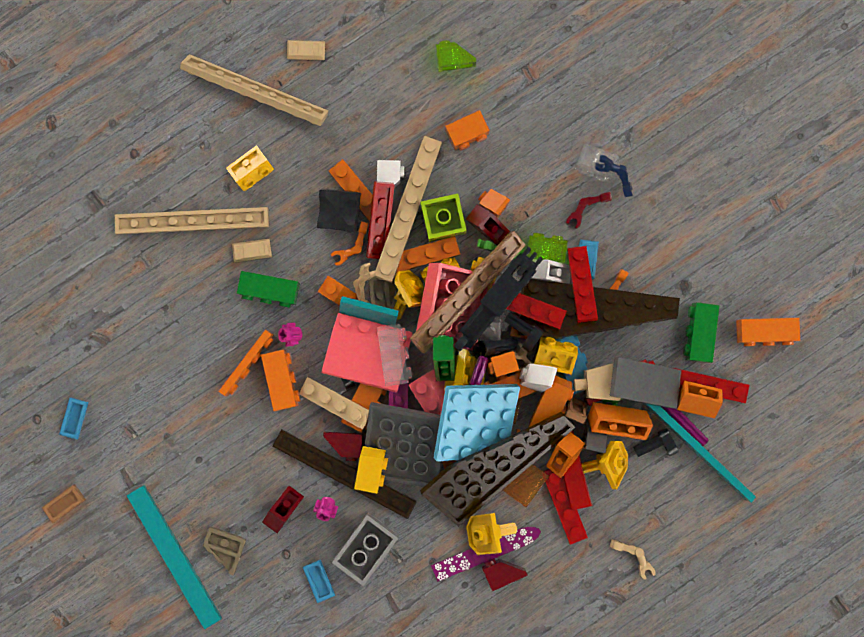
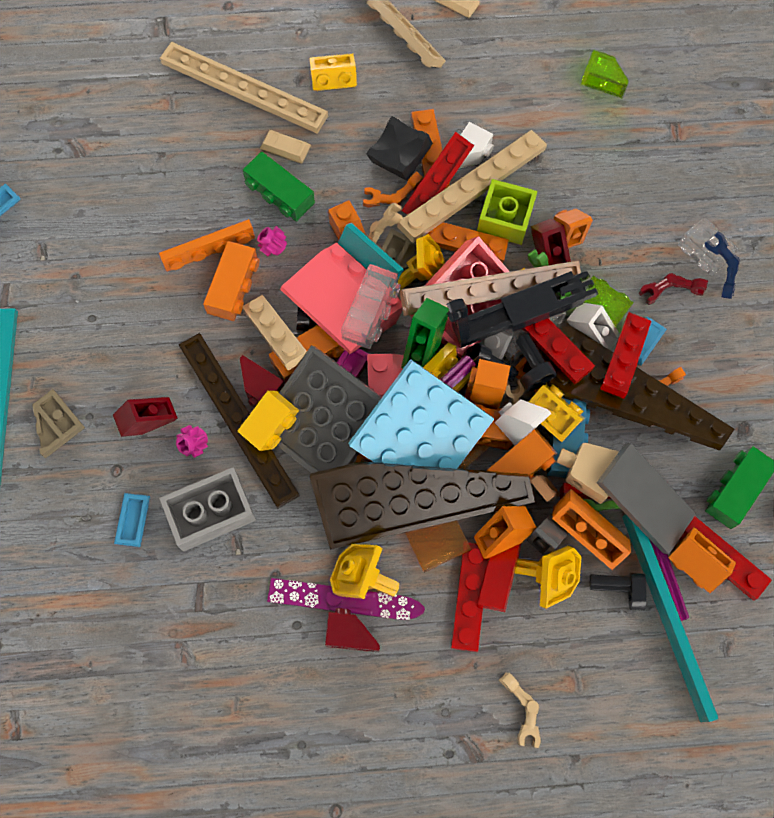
camera: 30 degrees right, 15 degrees down
(467, 130) = (580, 146): orange brick -> none

